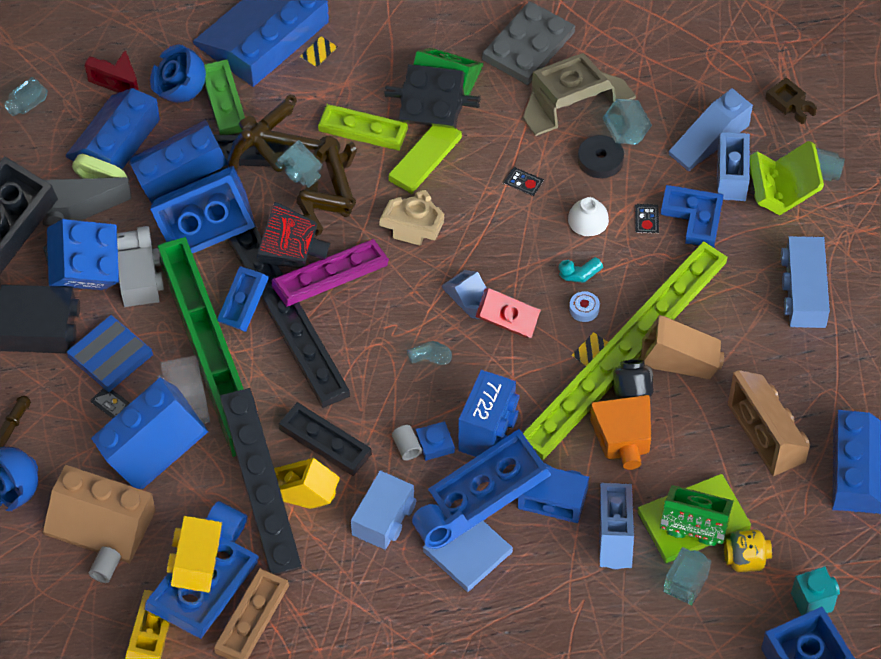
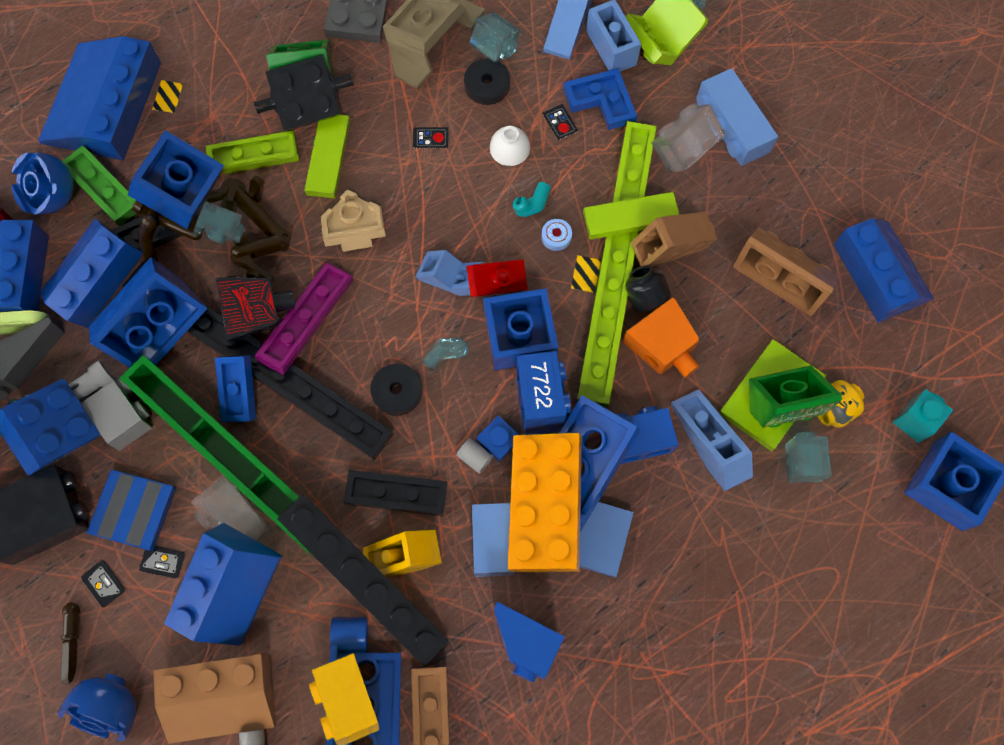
camera: 30 degrees left, 15 degrees up
(57, 396) = (102, 583): none -> black sticker
(285, 114) = (175, 179): none -> blue brick
(361, 584) = (526, 643): none -> blue slope
(375, 375) = (392, 376): none -> black piece
(439, 492) = (545, 503): none -> light orange plate
(504, 353) = (519, 326): none -> blue brick
(643, 312) = (628, 215): none -> lime tile
(749, 277) = (688, 137): none -> clear brick

